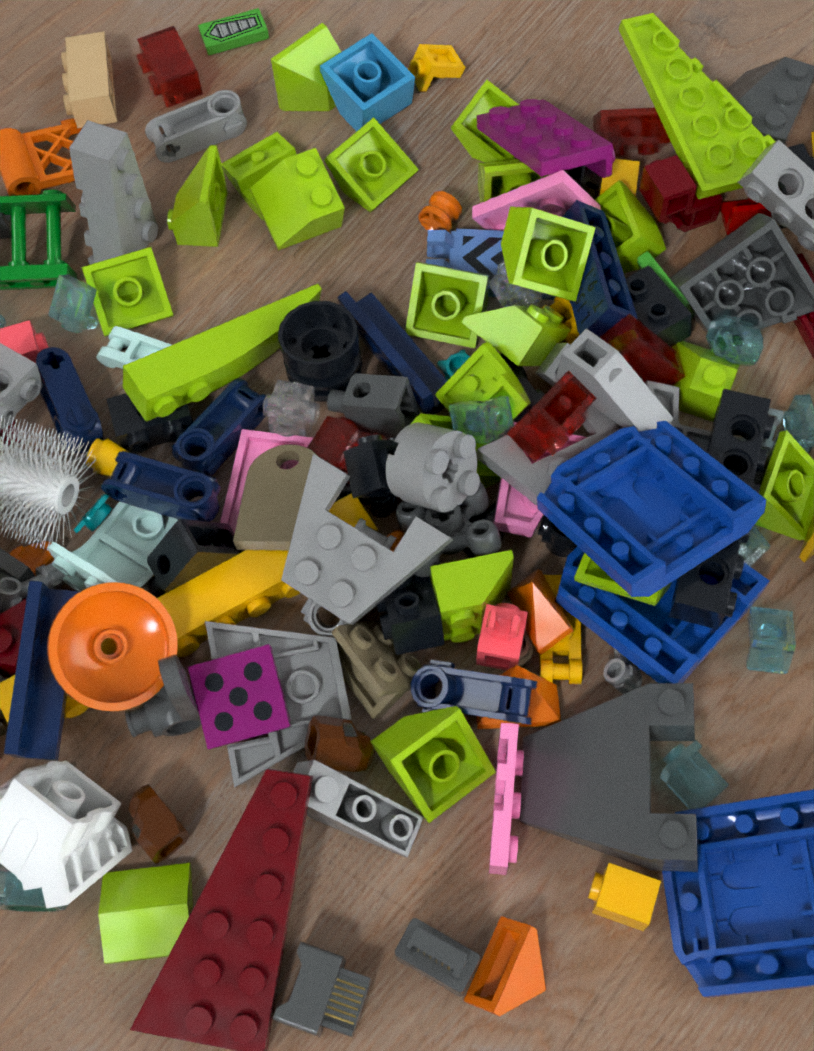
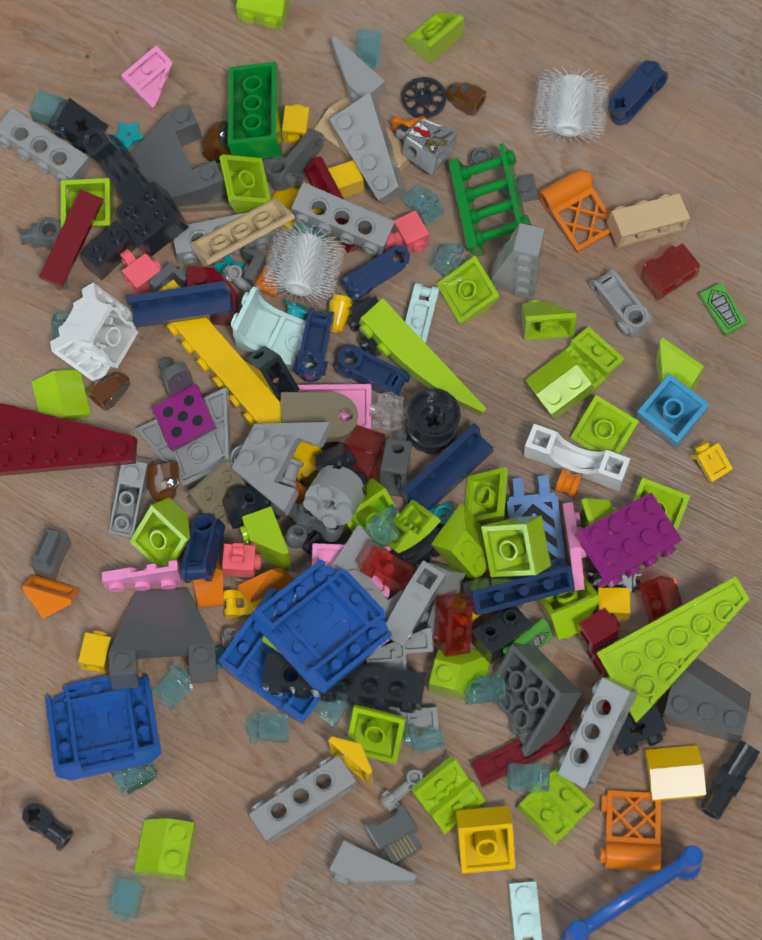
camera: 80 degrees right, 5 degrees up
(140, 636) = (183, 342): orange dish -> none
(324, 994) = (26, 497): dark grey piece -> none
(389, 223) = (599, 467): none -> white arch

